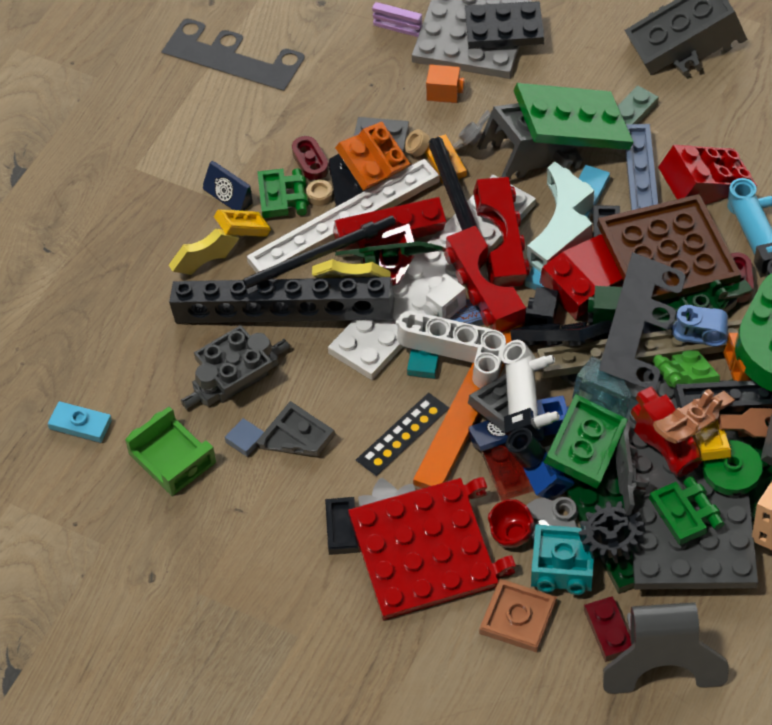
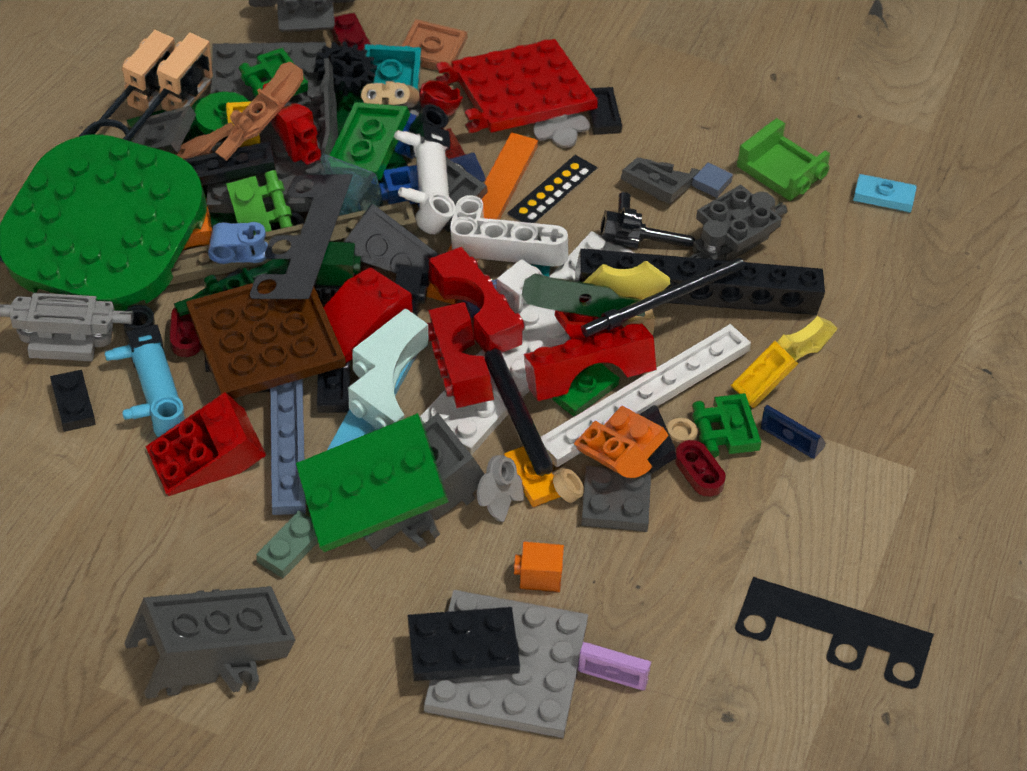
camera: 170 degrees right, 5 degrees down
(338, 368) = (626, 228): none -> black piece
(562, 492) = (390, 94): none -> tan piece

